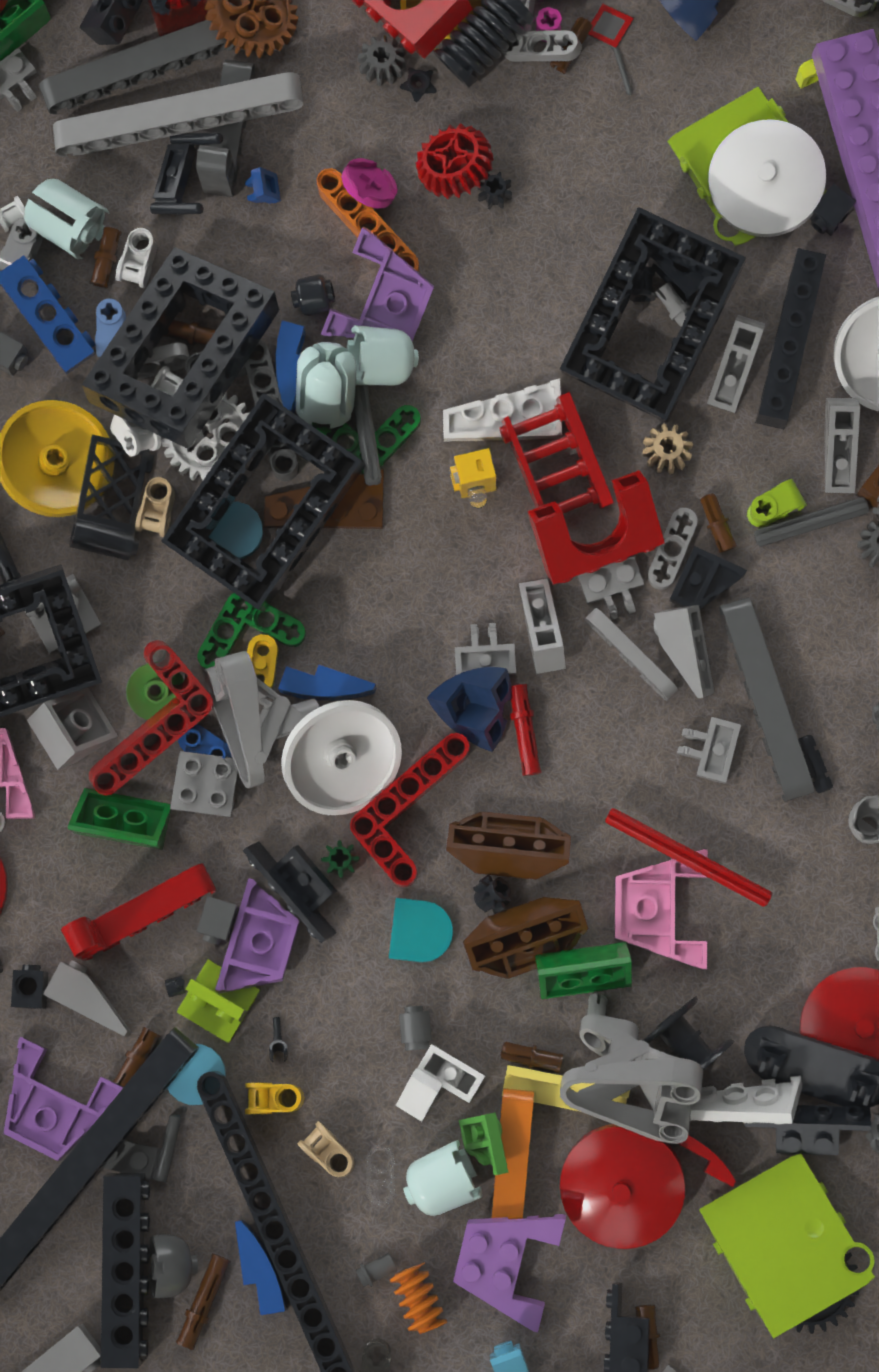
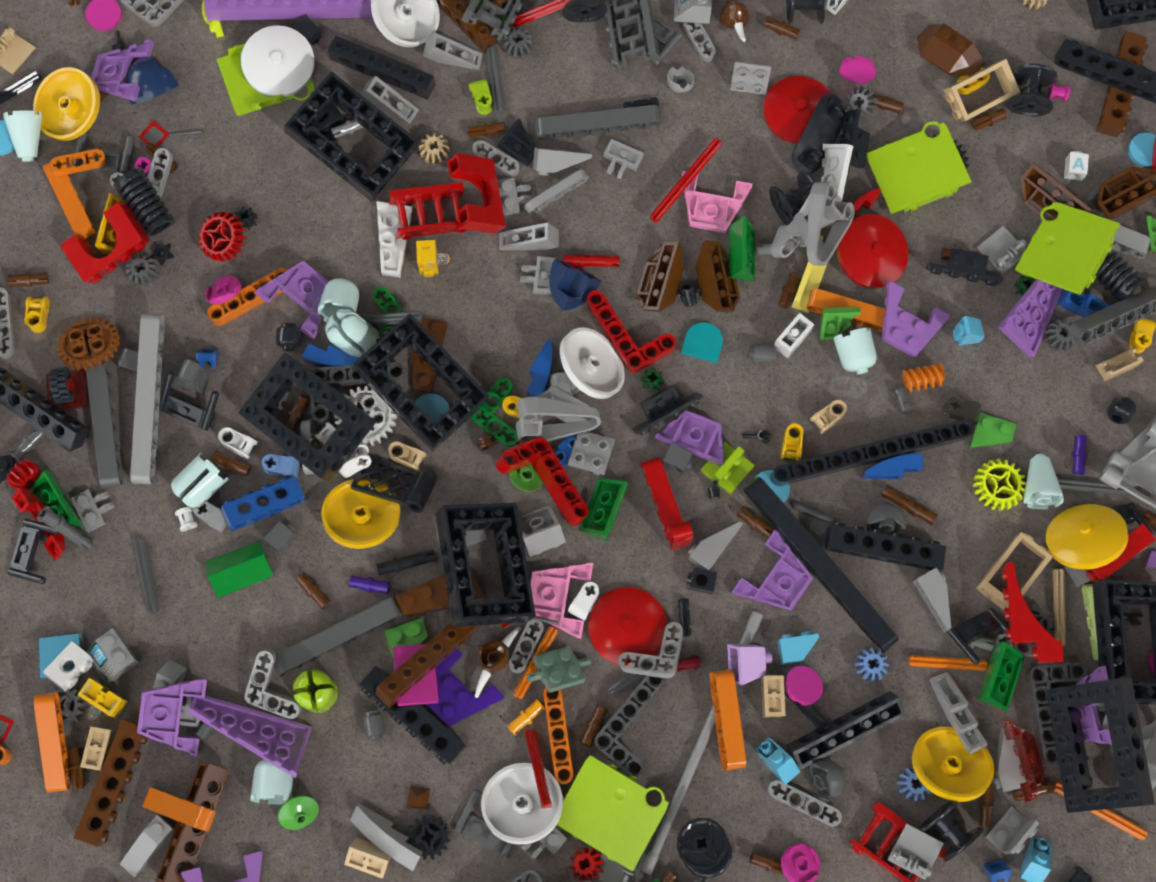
camera: 90 degrees left, 5 degrees down
(196, 622) = (486, 442): none -> reddish brown bush
(419, 1094) = (803, 355): white tile -> none

